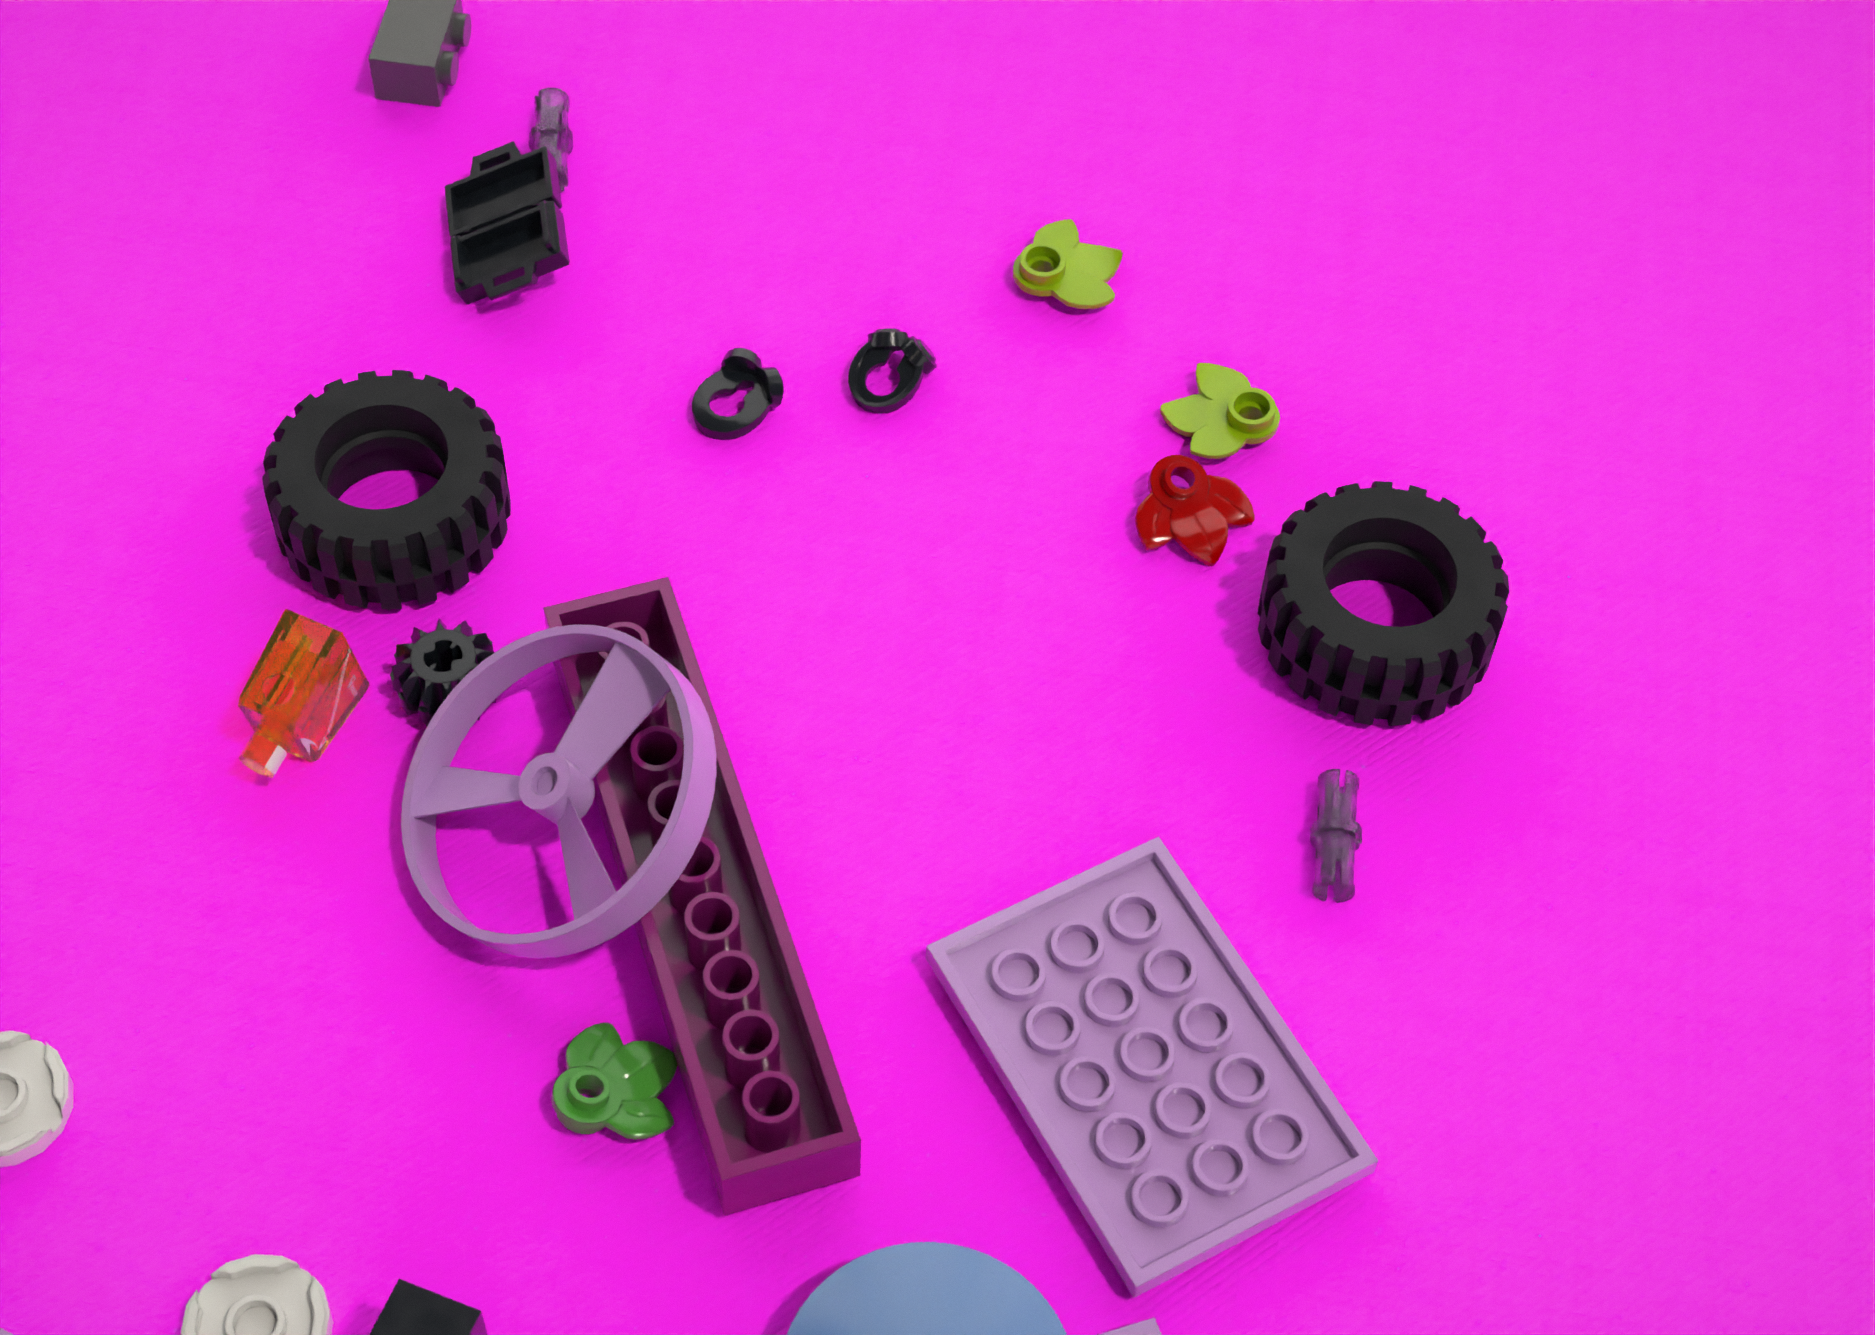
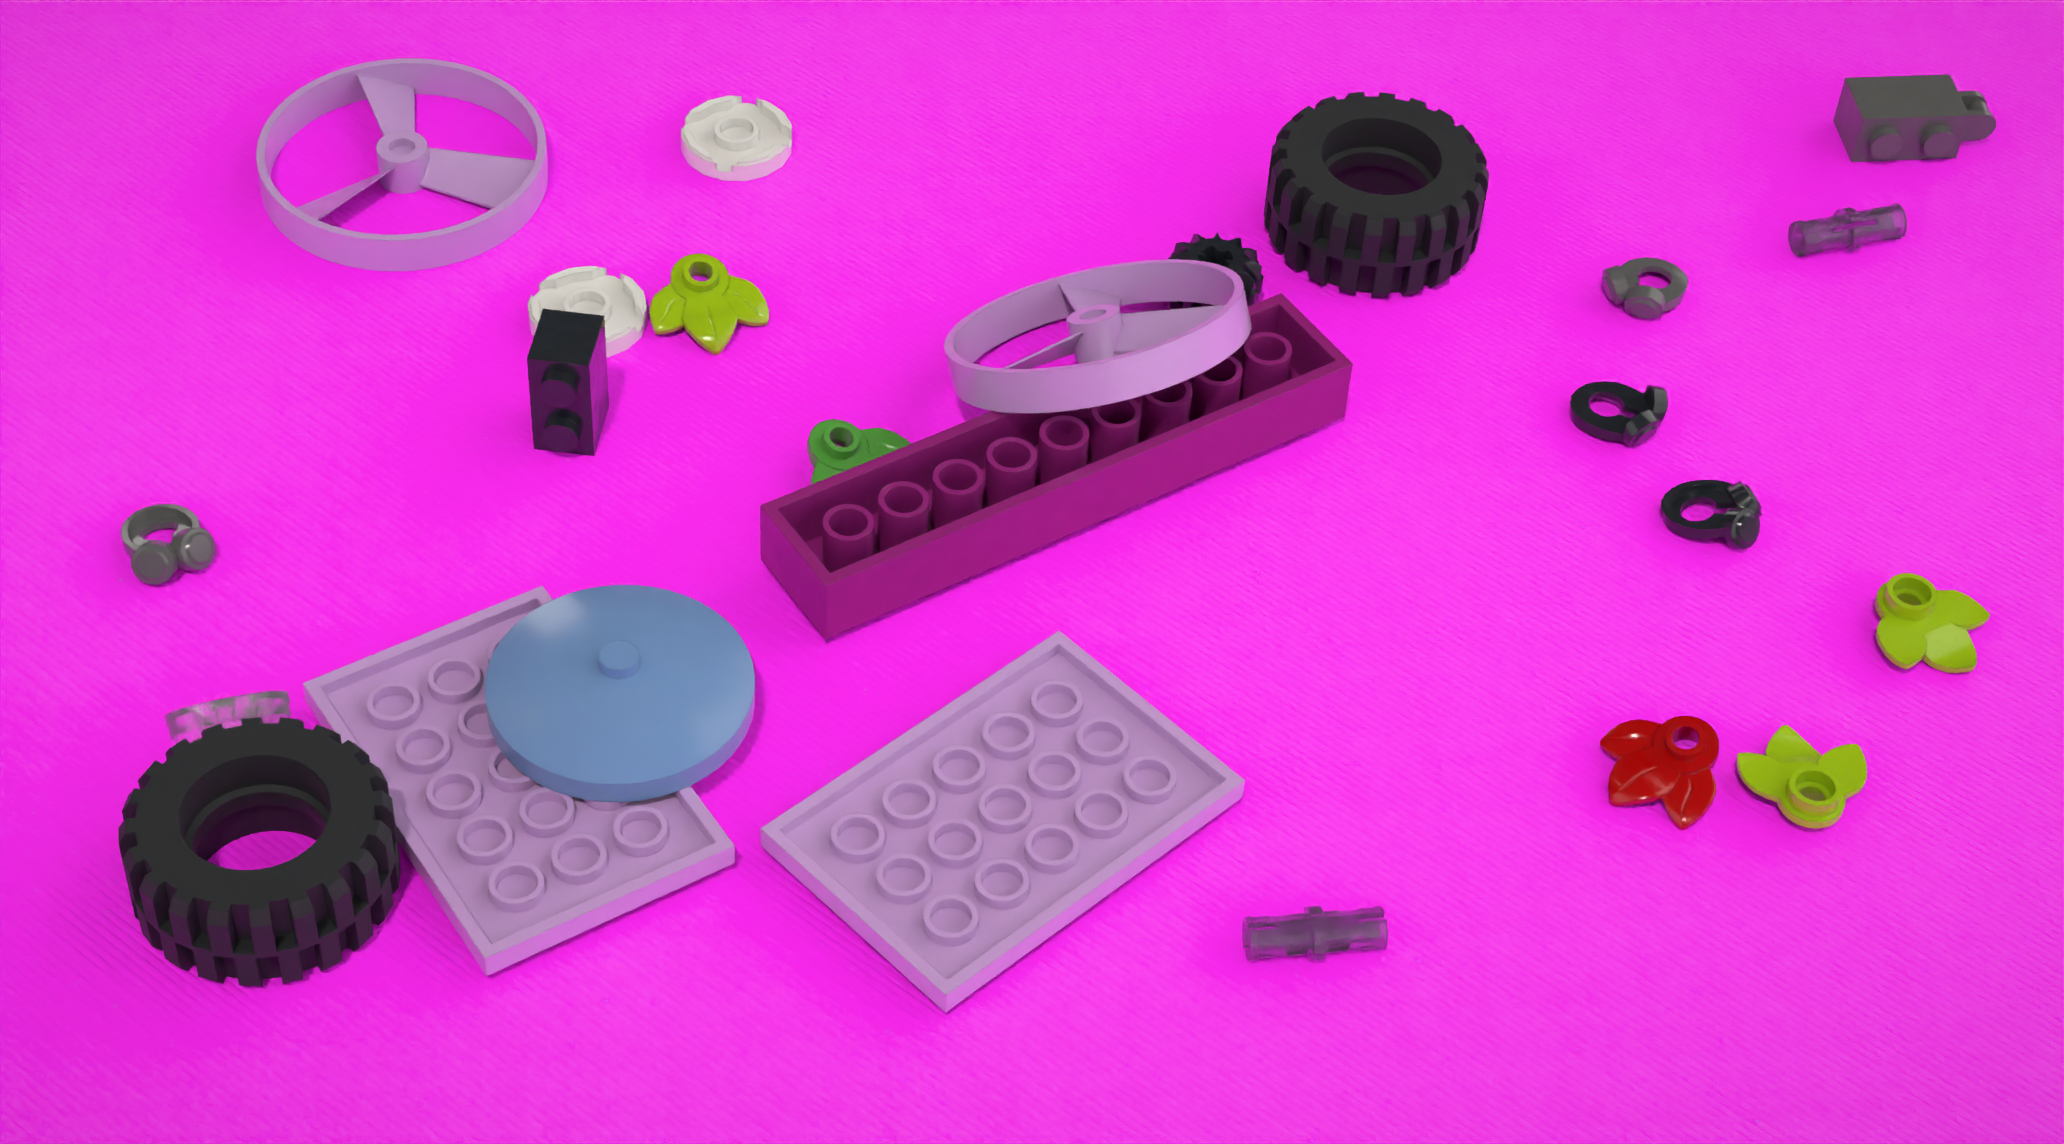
camera: 75 degrees right, 10 degrees down
(299, 693) = (1144, 189): torso -> none
(306, 1190) = (707, 307): none -> lime plate
(505, 223) = (1721, 212): black piece -> none
(565, 339) = (1642, 301): none -> dark grey piece
(1392, 540) = (1591, 981): tyre -> none

